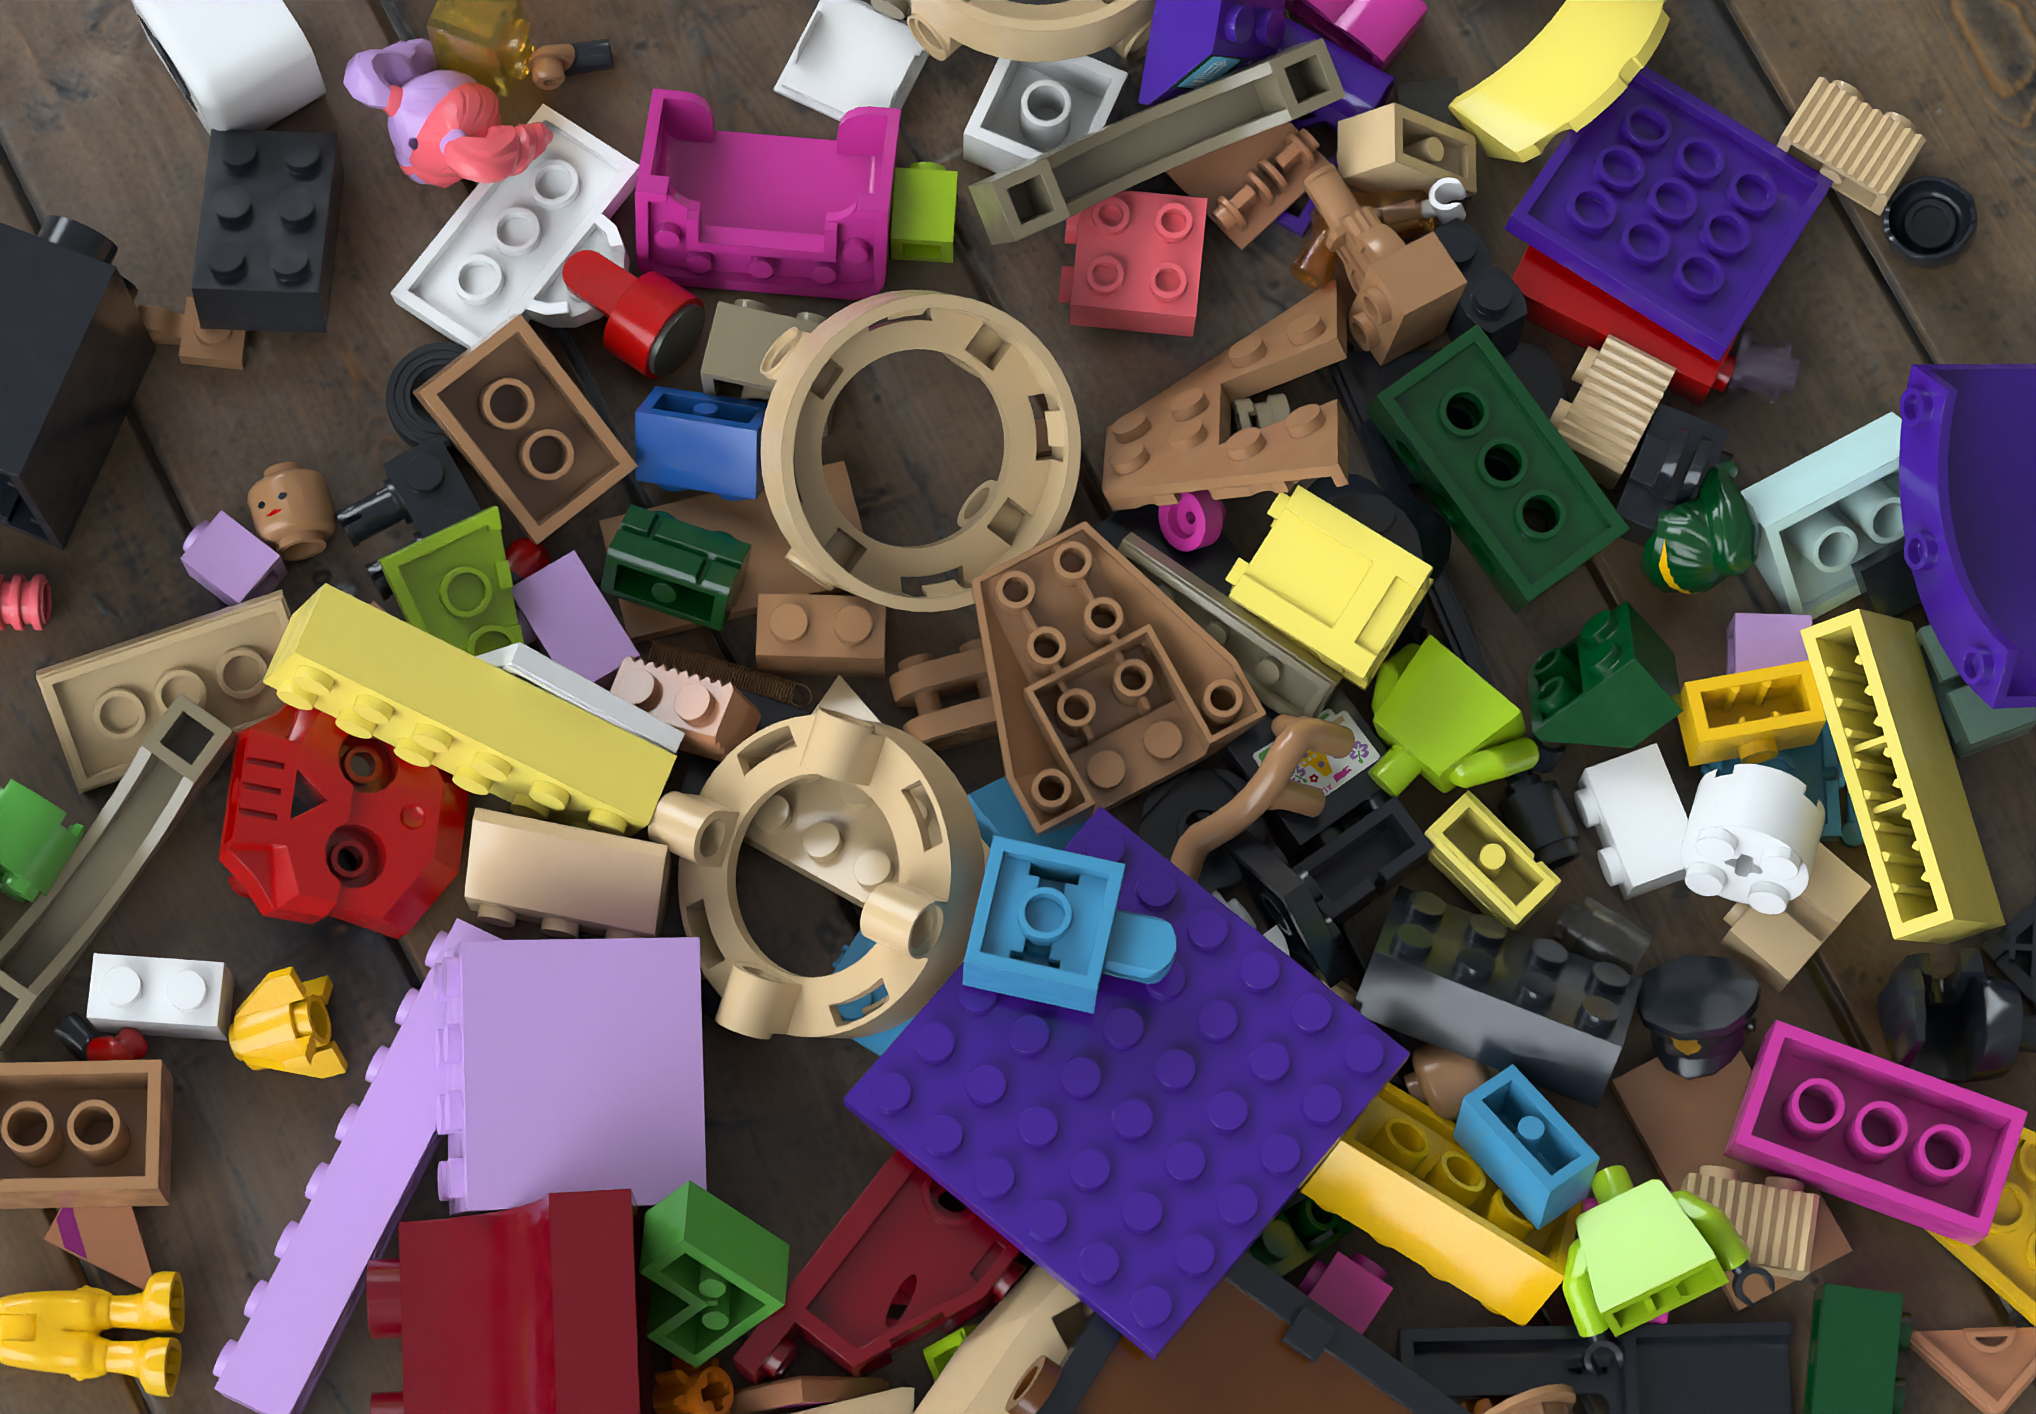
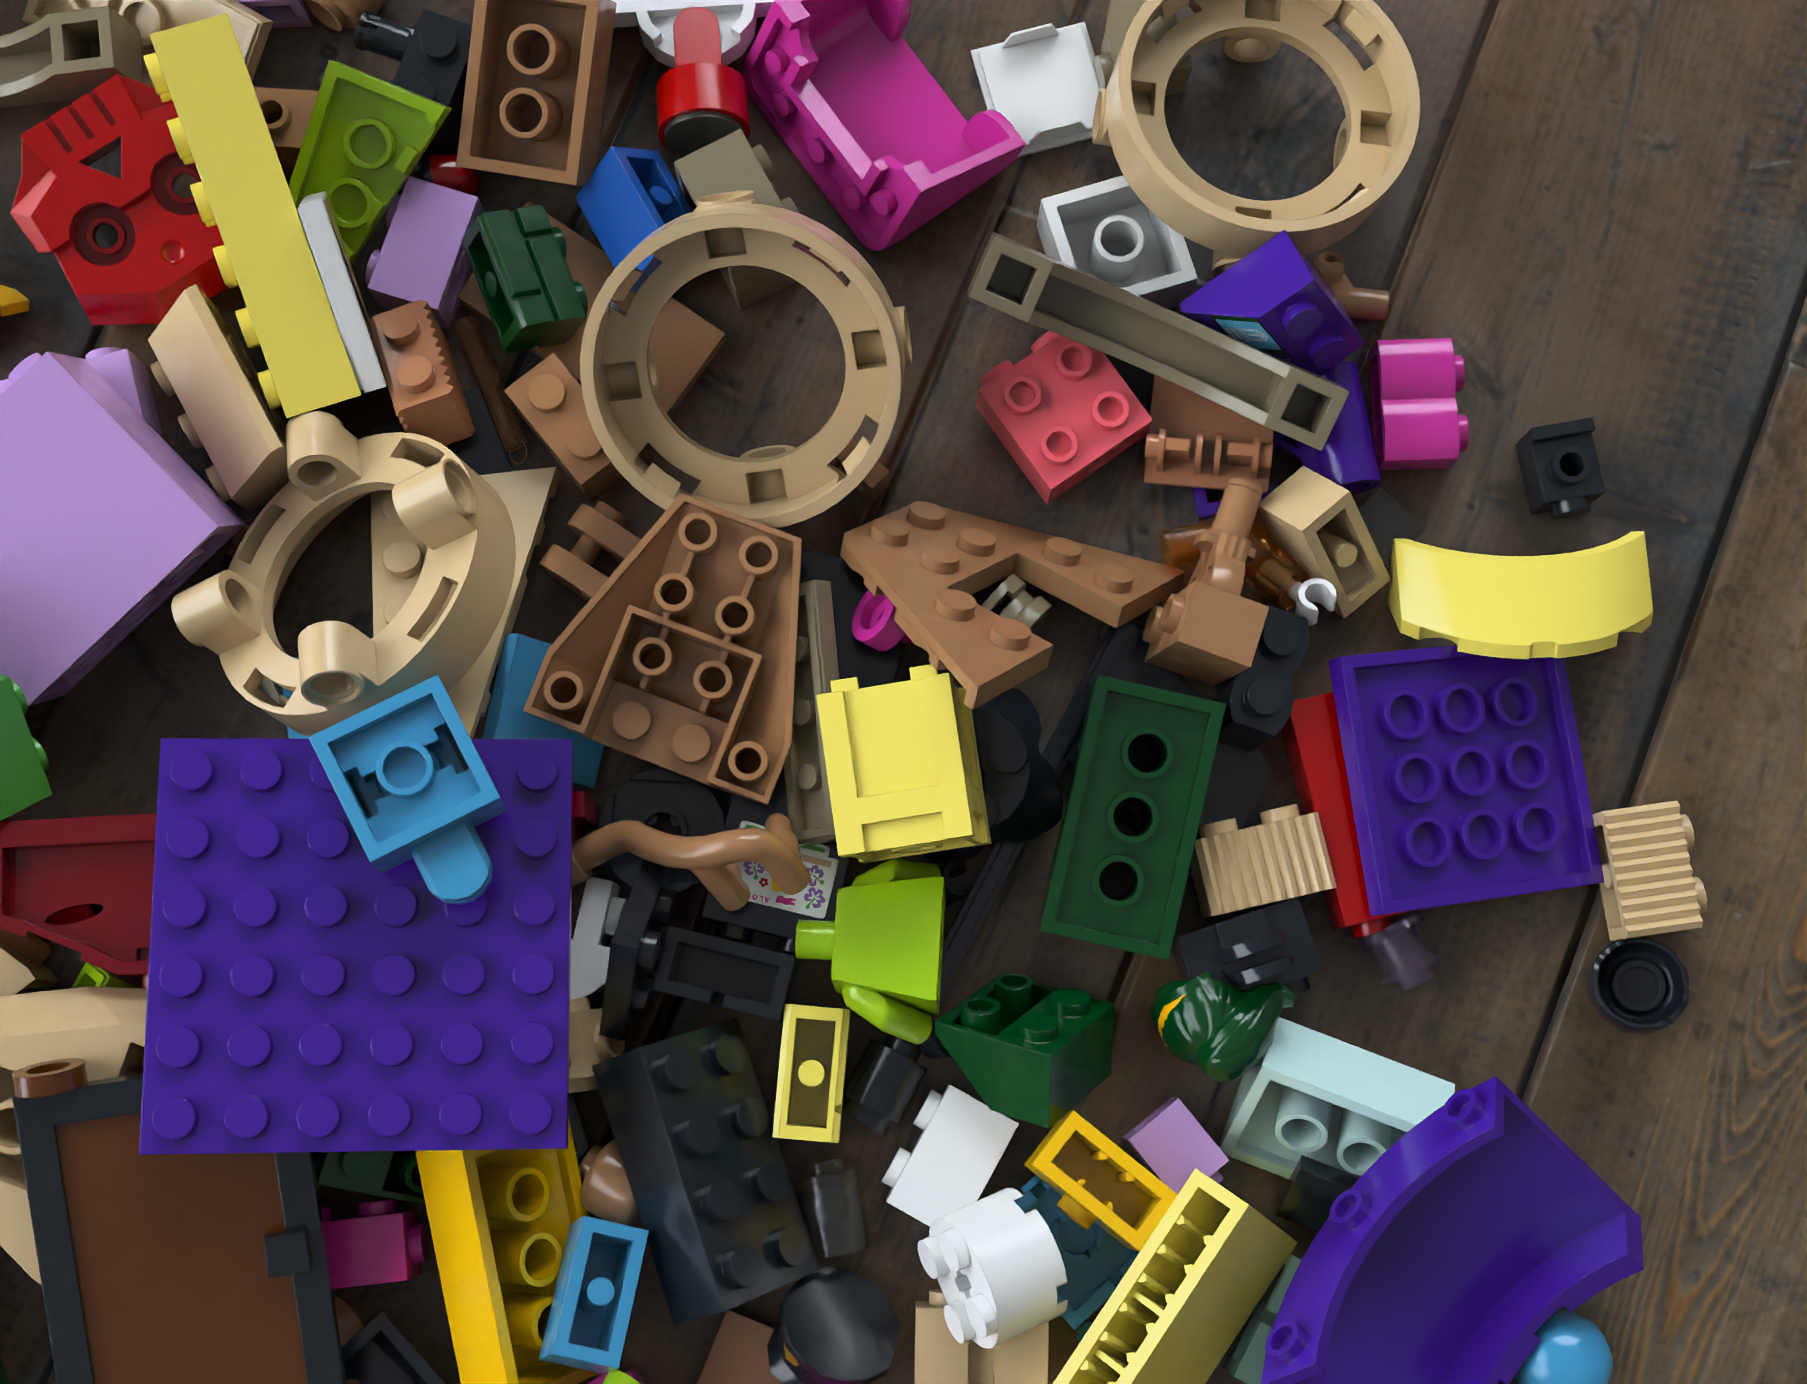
camera: 50 degrees right, 5 degrees up
(924, 213) = (960, 228): lime brick -> none

